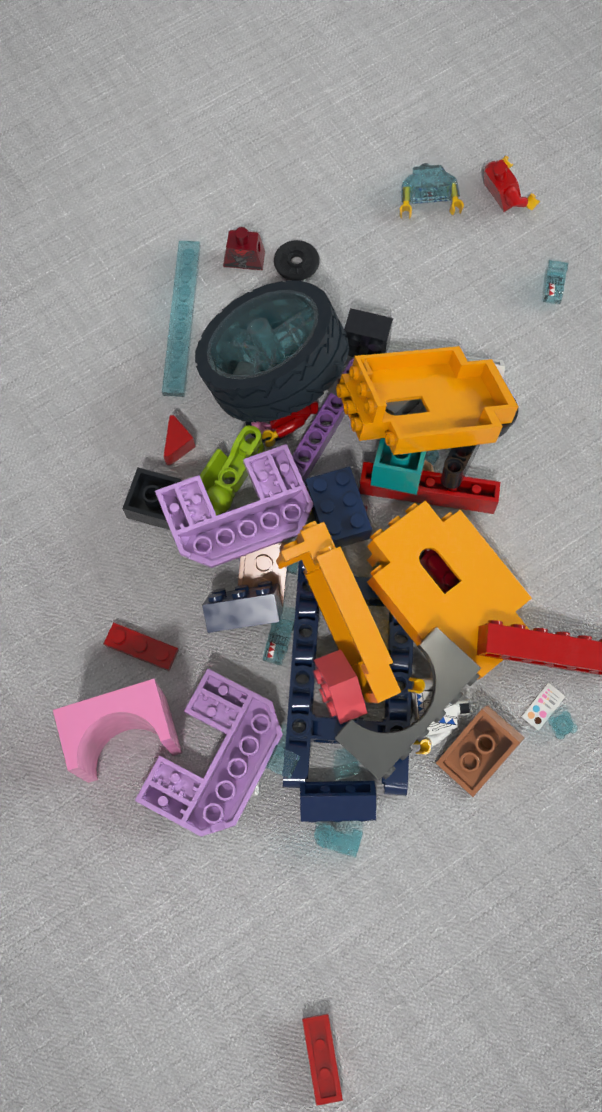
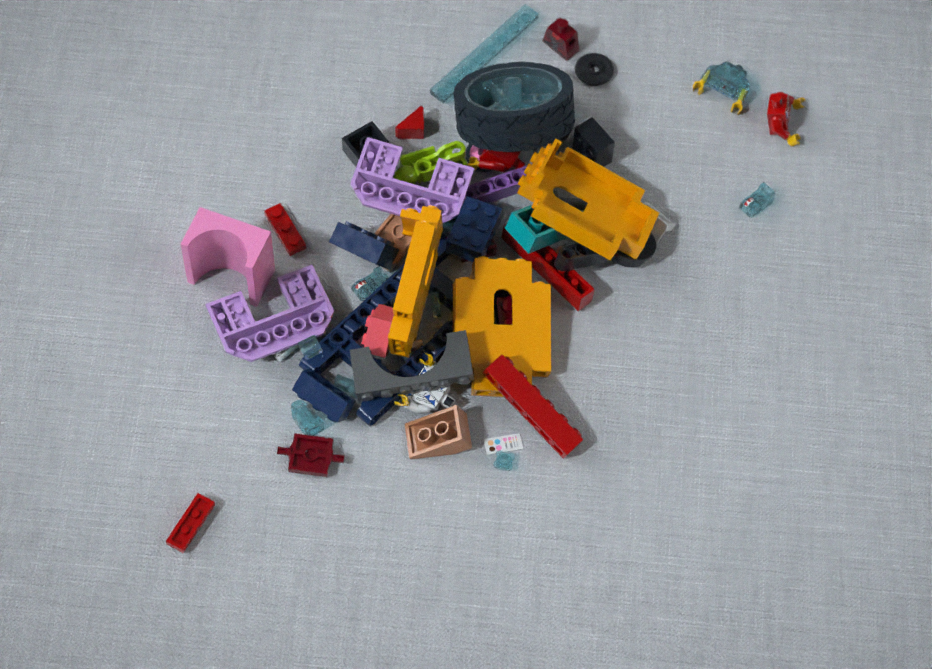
camera: 35 degrees right, 10 degrees down
(377, 876) = (310, 455): none -> dark red plate

